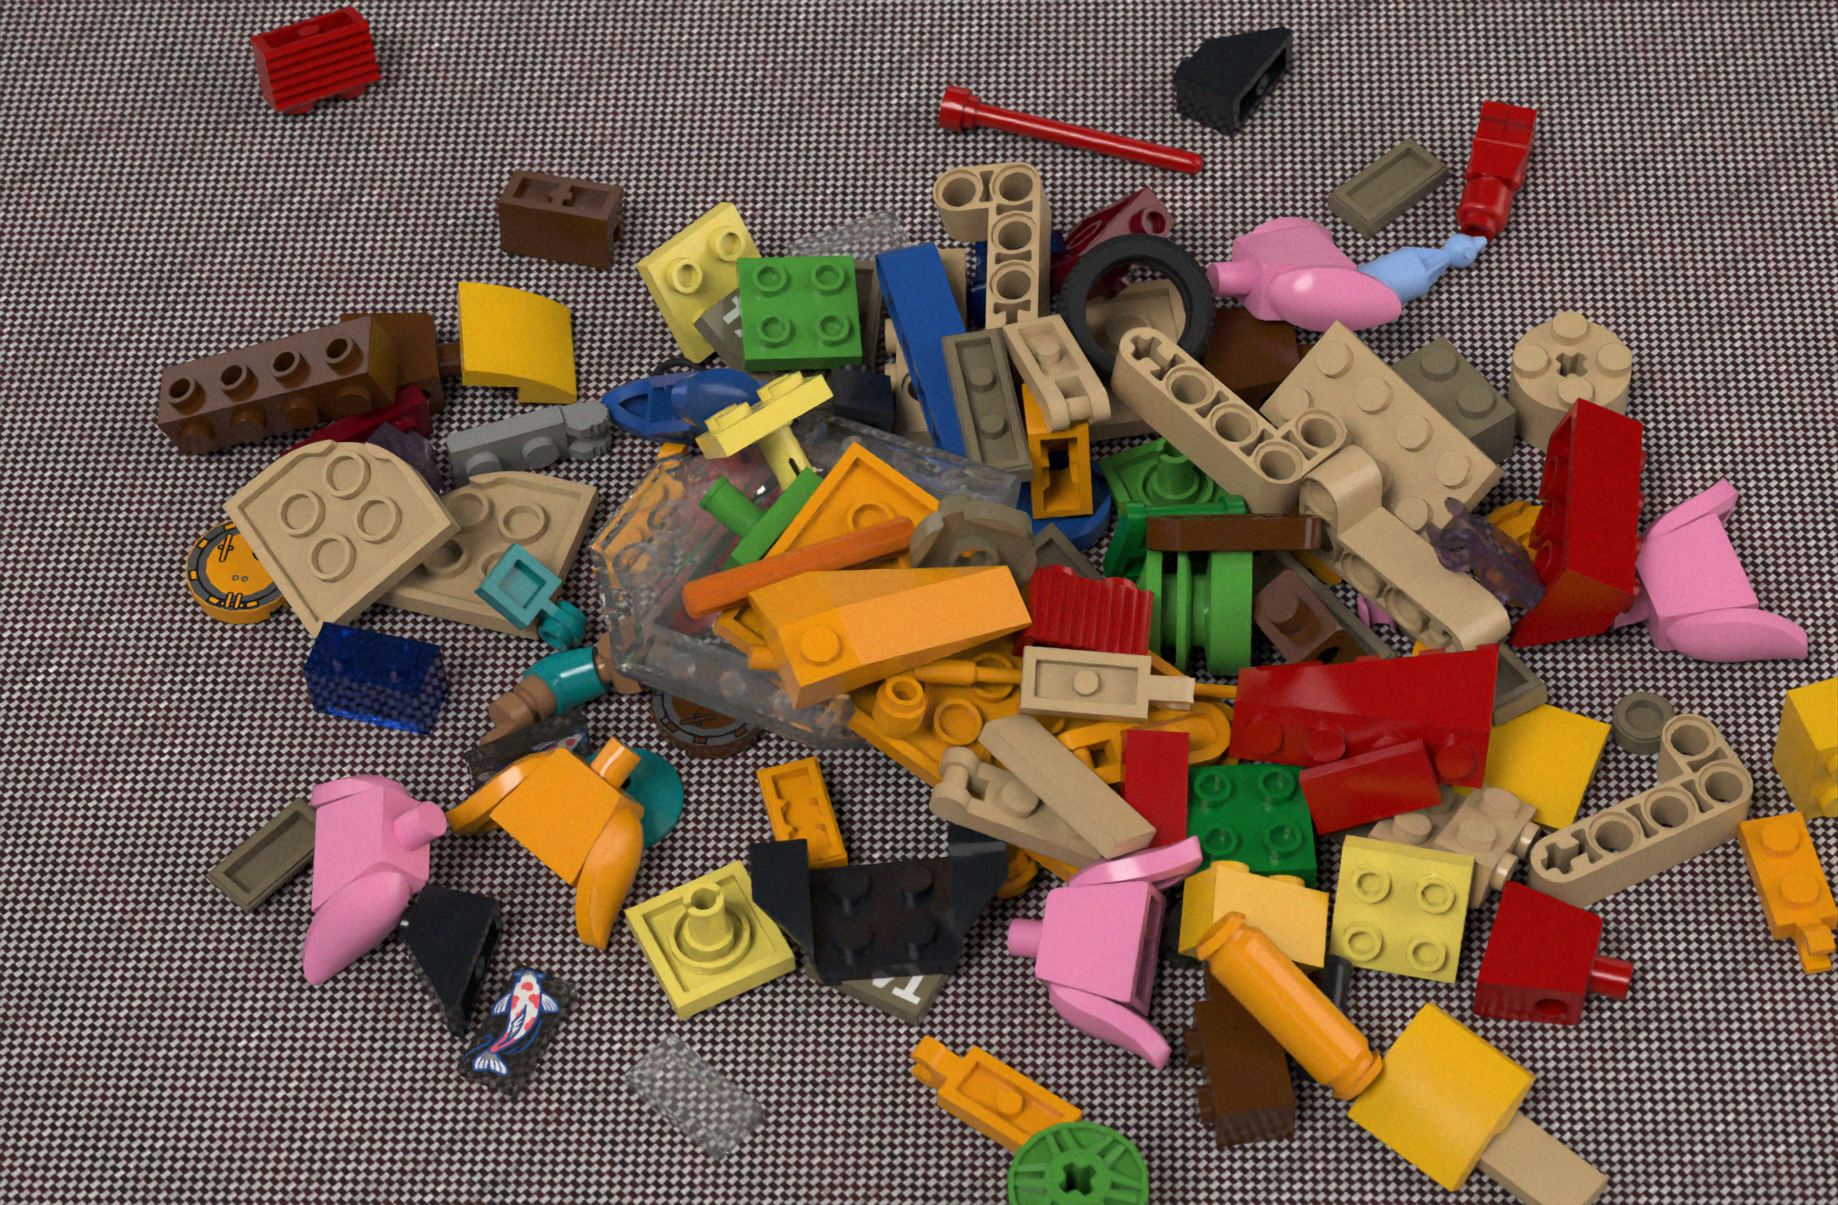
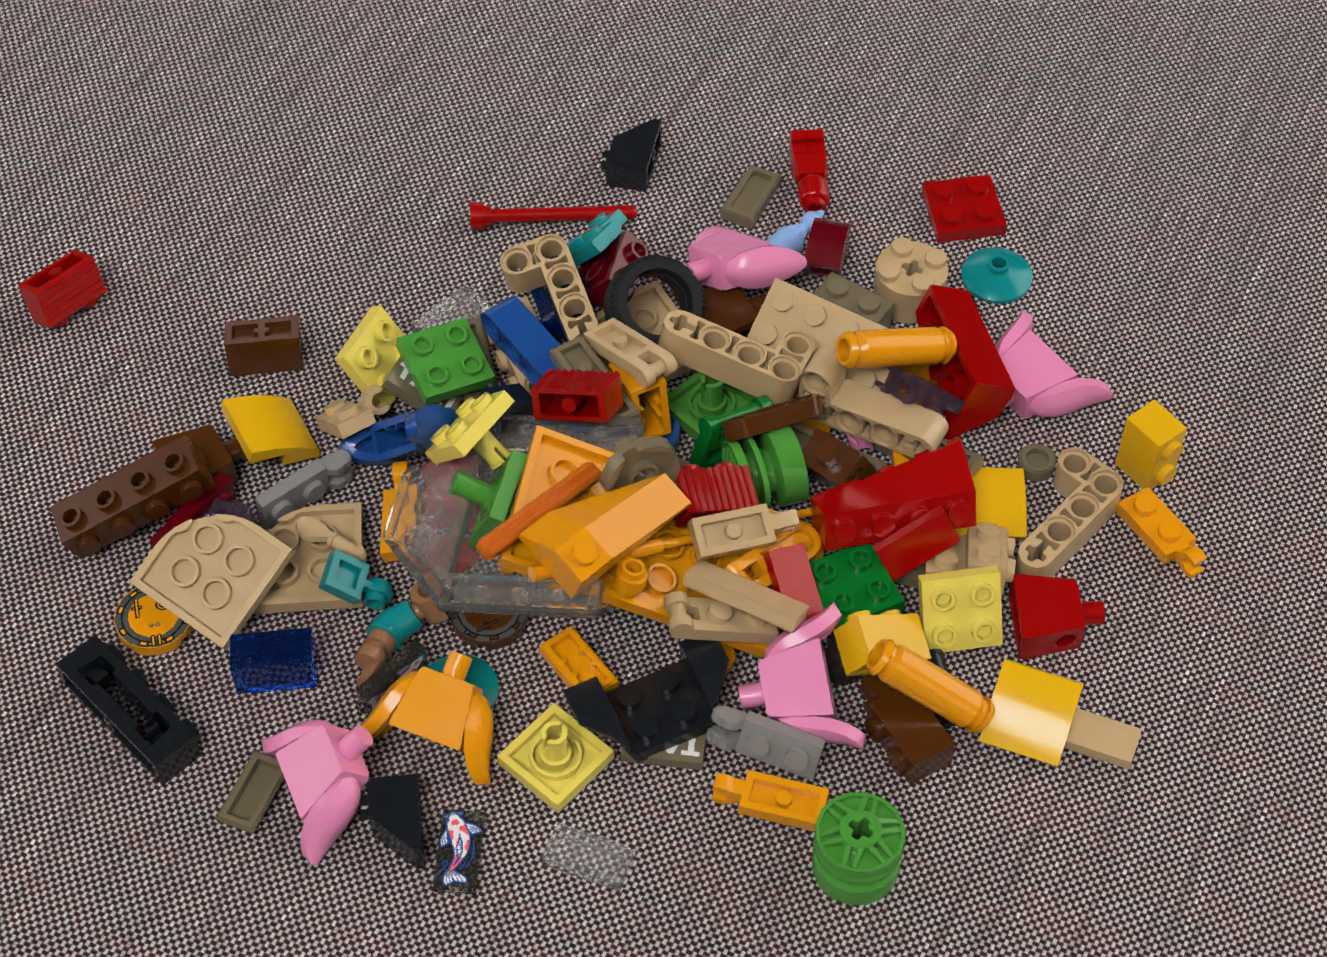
camera: 25 degrees left, 0 degrees up
(184, 760) = (166, 752): none -> black brick
(511, 509) = (316, 531): none -> tan piece
(631, 357) = (348, 418): none -> tan plate
(939, 415) = (577, 396): none -> red brick
(1021, 1011) = (766, 740): none -> light grey hinge
(1109, 186) = (601, 233): none -> teal plate
(1454, 297) = (827, 247): none -> dark red brick
(1466, 478) = (896, 347): none -> light orange axle
(1717, 295) = (963, 208): none -> red plate
(1721, 431) = (996, 275): none -> teal dish

